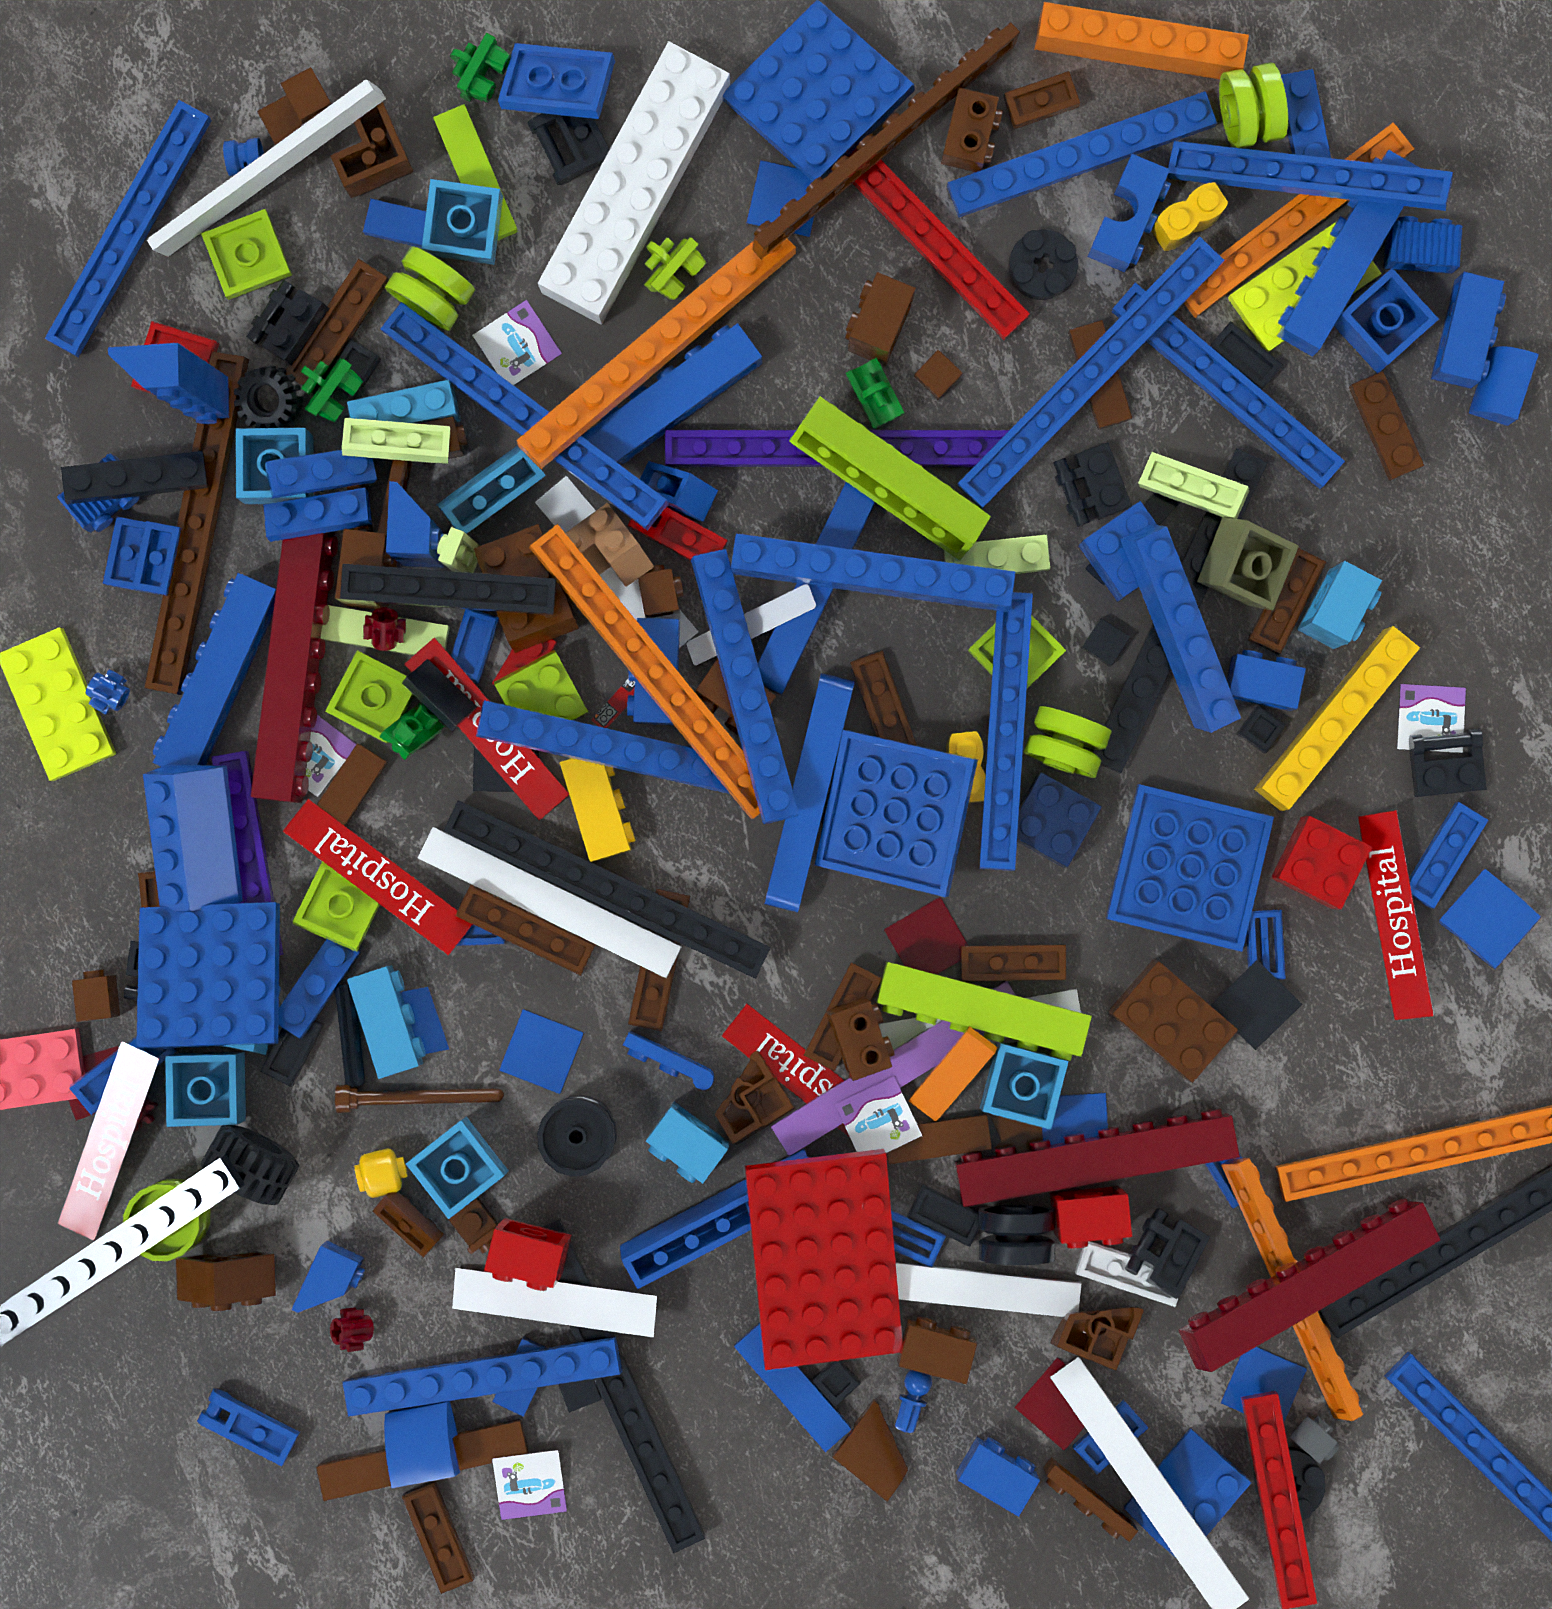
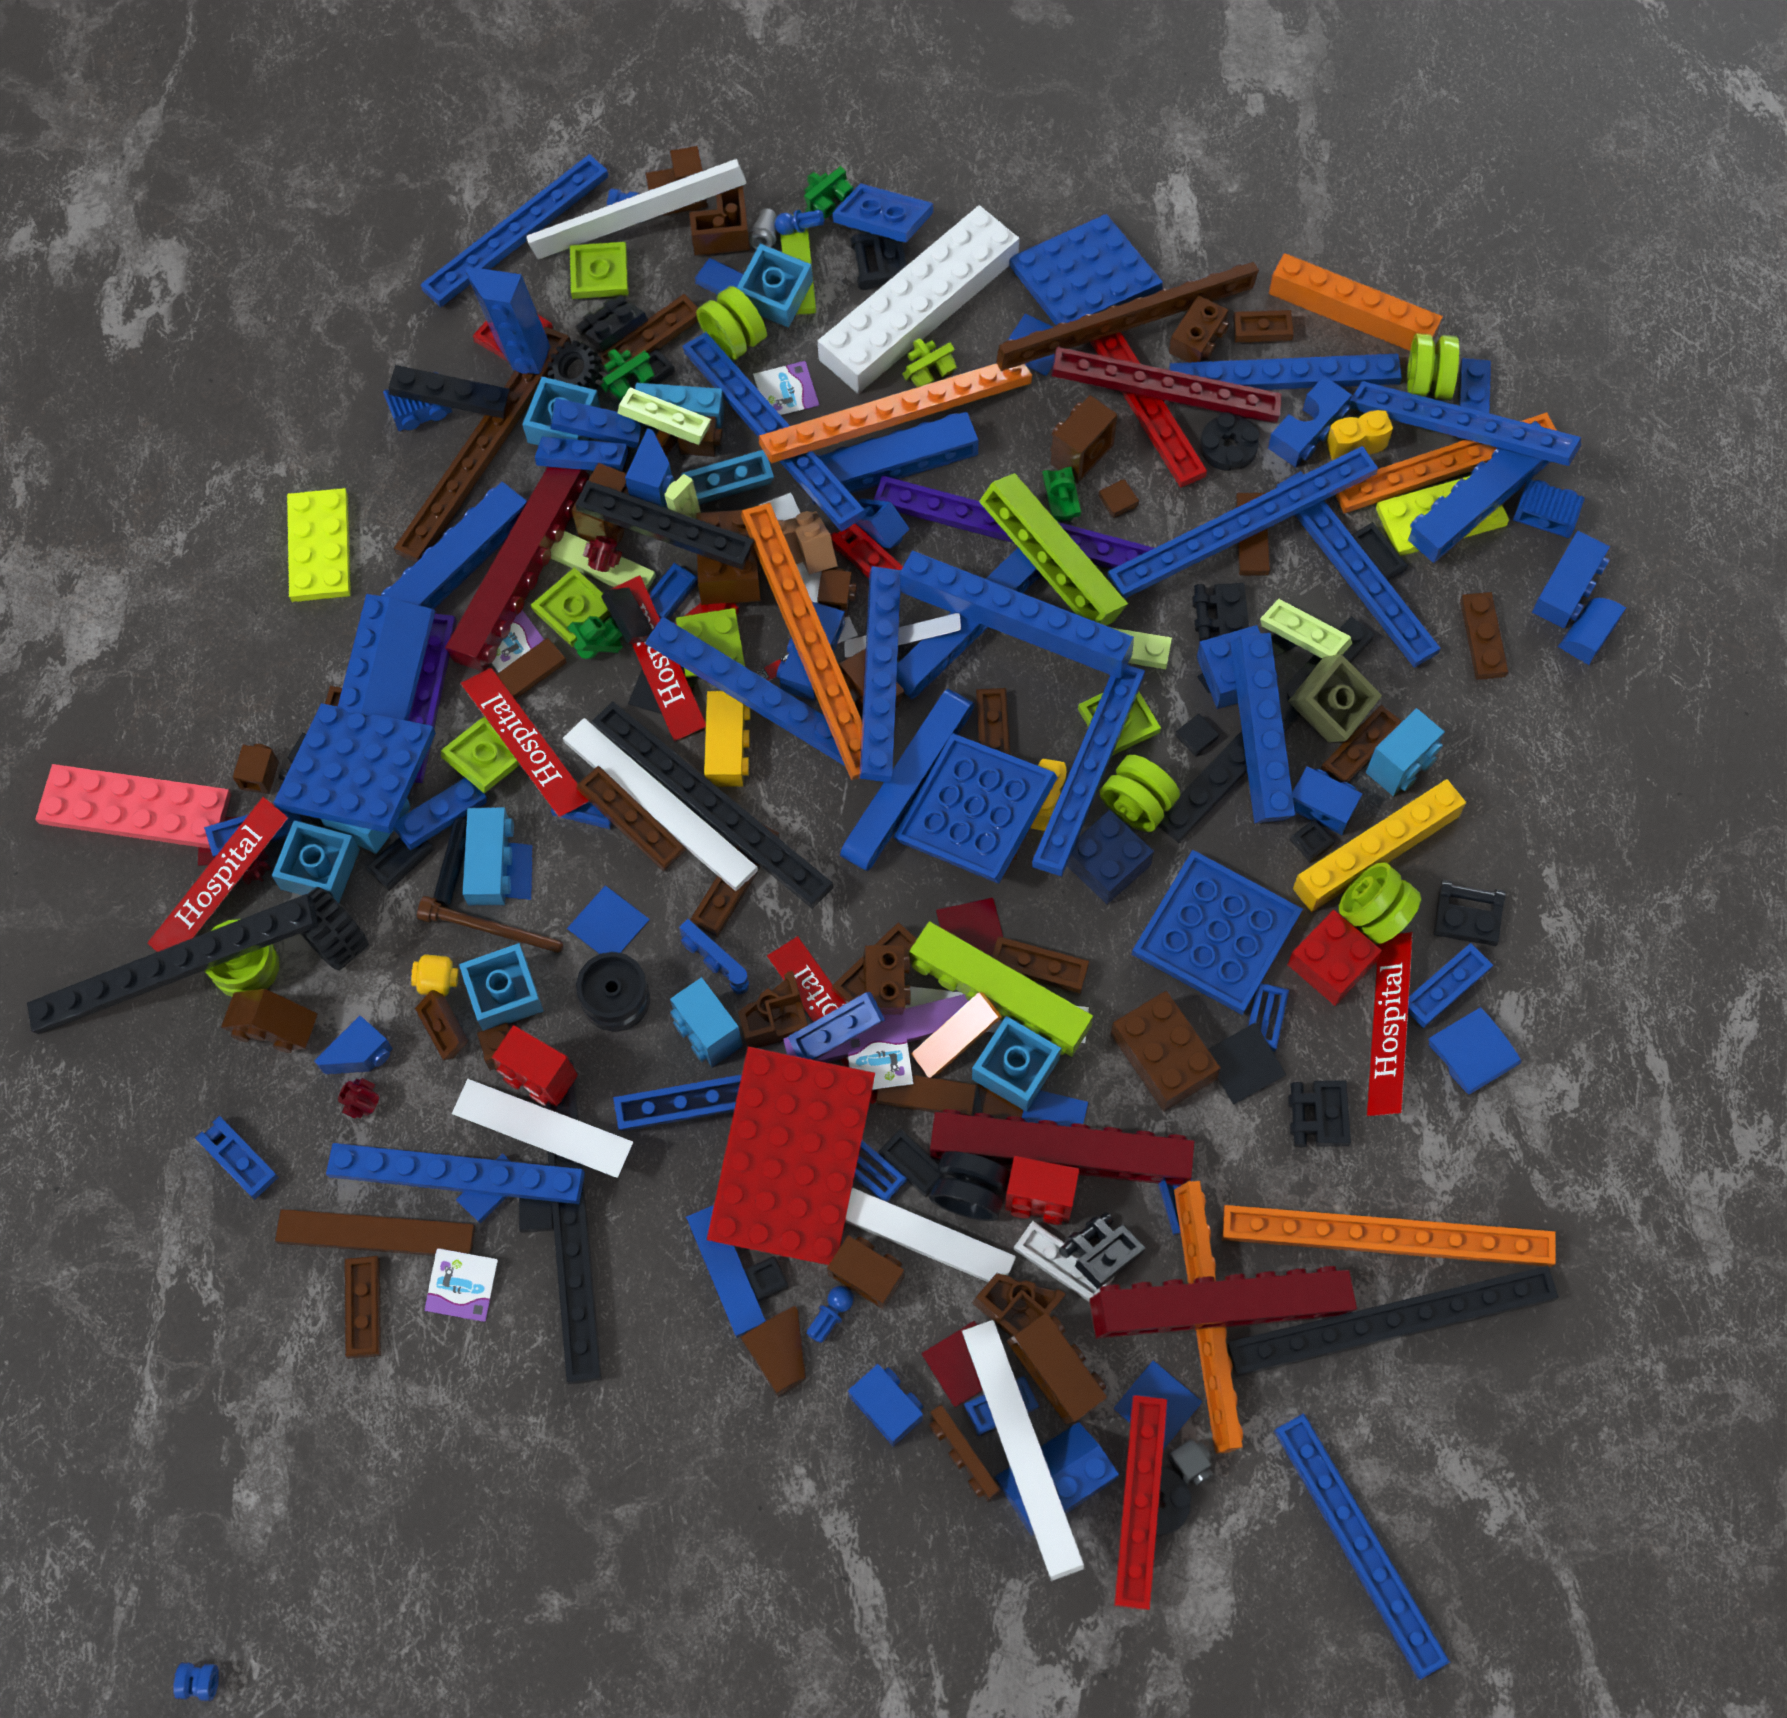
camera: 15 degrees right, 20 degrees down
(107, 691) = (363, 542): blue gear -> none
(142, 556) = (430, 454): blue slope -> none
(420, 1444) = (379, 1214): blue slope -> none
(422, 143) = (763, 229): none -> light grey cone
(446, 127) = (786, 223): none -> blue axle
(828, 1111) = (837, 1027): none -> plate
(954, 219) = (1166, 384): none -> dark red plate
(1161, 1396) = (1057, 1368): none -> reddish brown brick
(1357, 794) = (1379, 903): none -> lime wheel
(1358, 1032) = (1330, 1114): none -> black plate
(1385, 320) = (1501, 550): blue brick -> none
(1430, 713) = (1466, 869): sticker -> none

